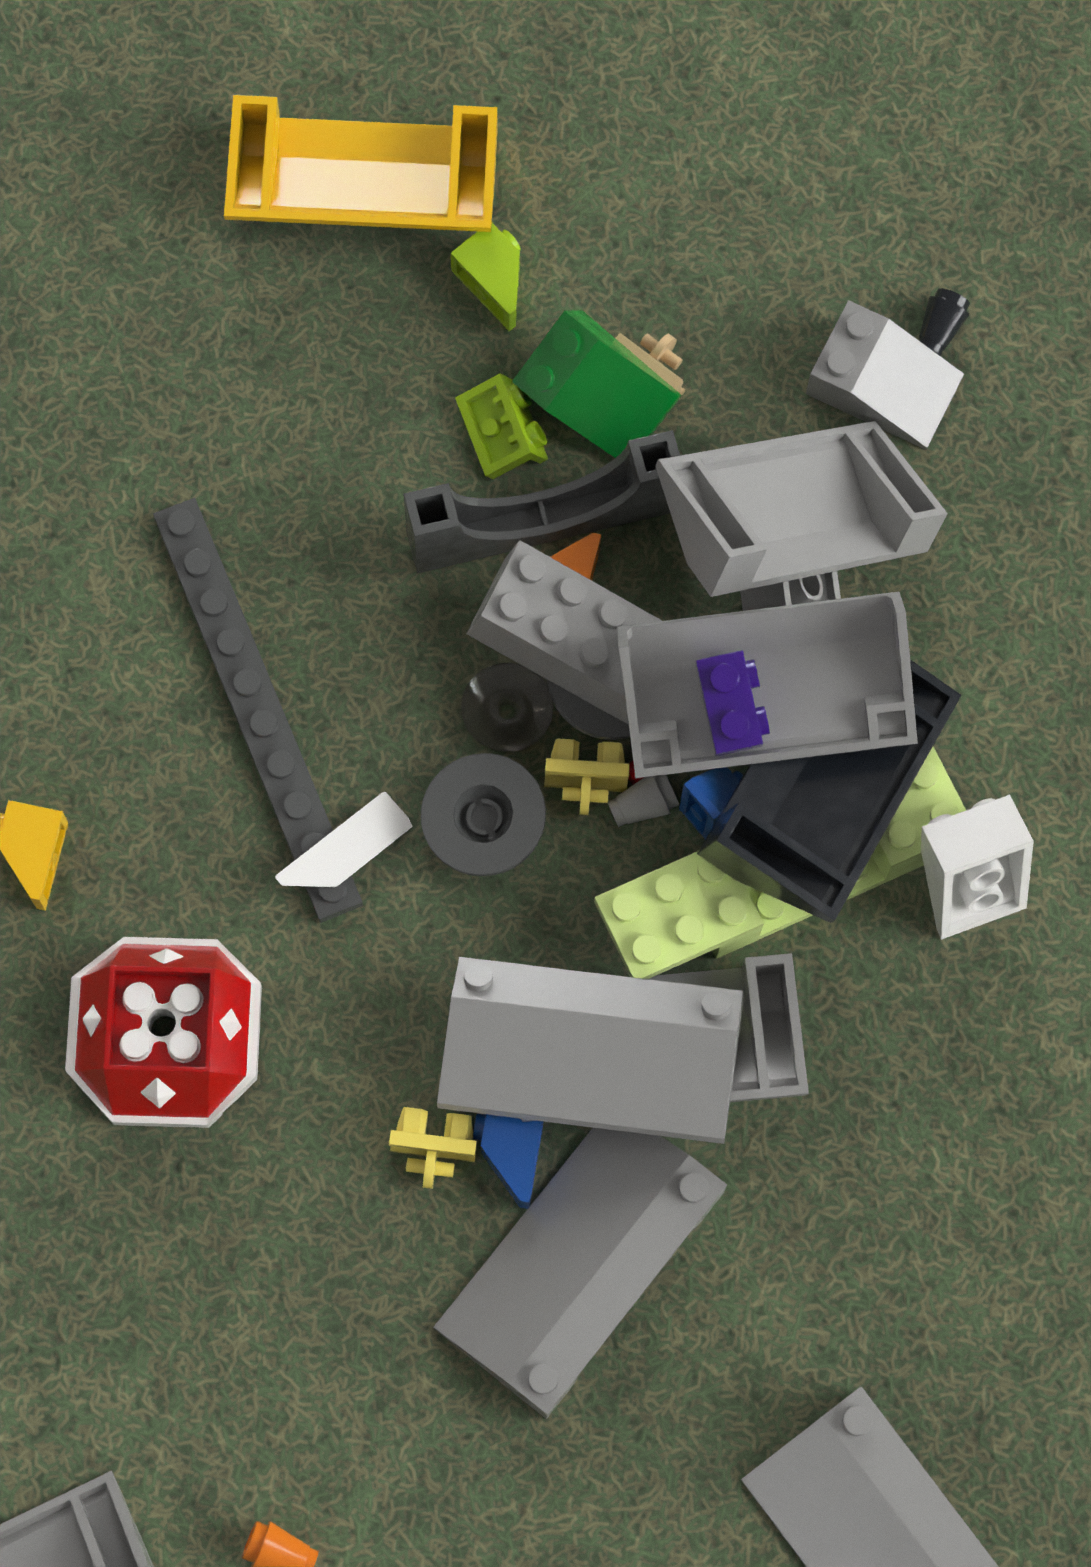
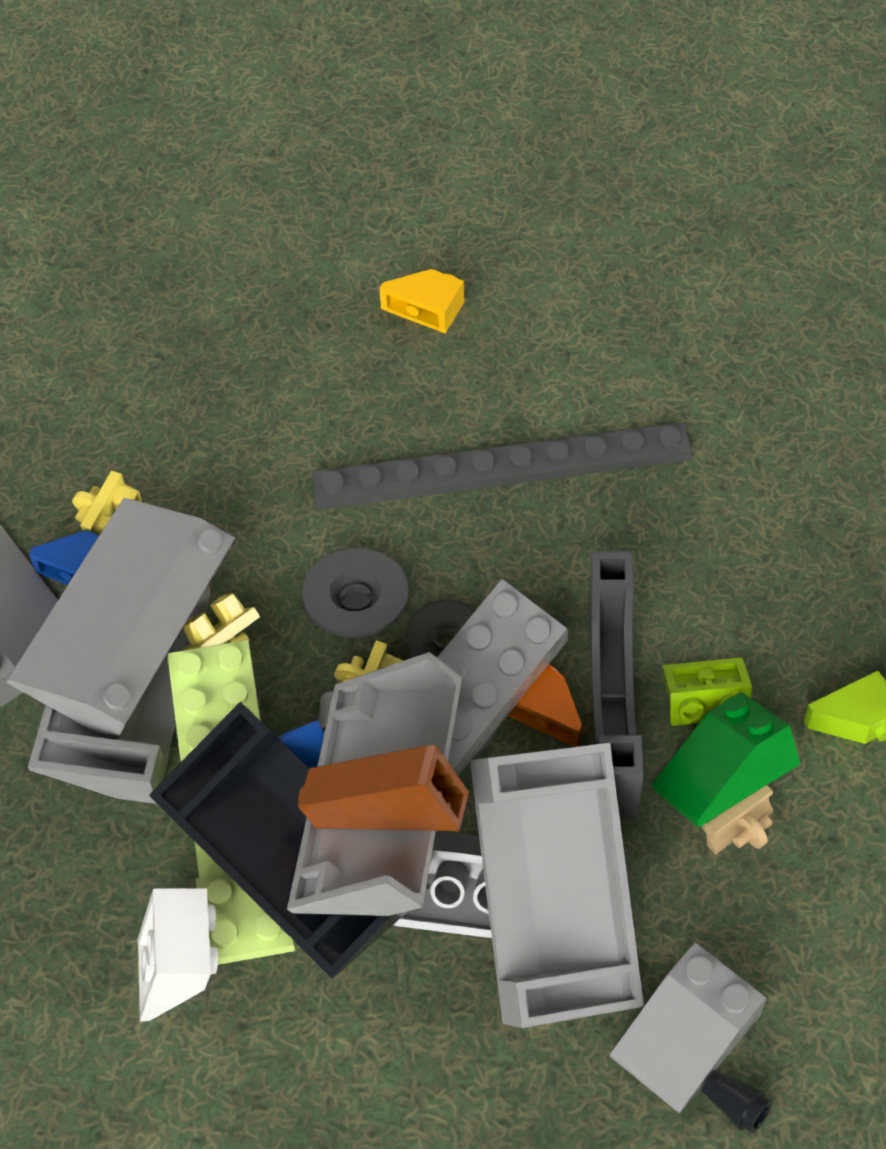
camera: 110 degrees right, 15 degrees down
(173, 1077) = (261, 357): red piece -> none
(348, 846) = (363, 499): white sticker -> none
(567, 946) = (232, 620): none -> light yellow hips
(729, 702) = (360, 737): dark purple brick -> none
(793, 661) = (386, 792): none -> dark orange slope

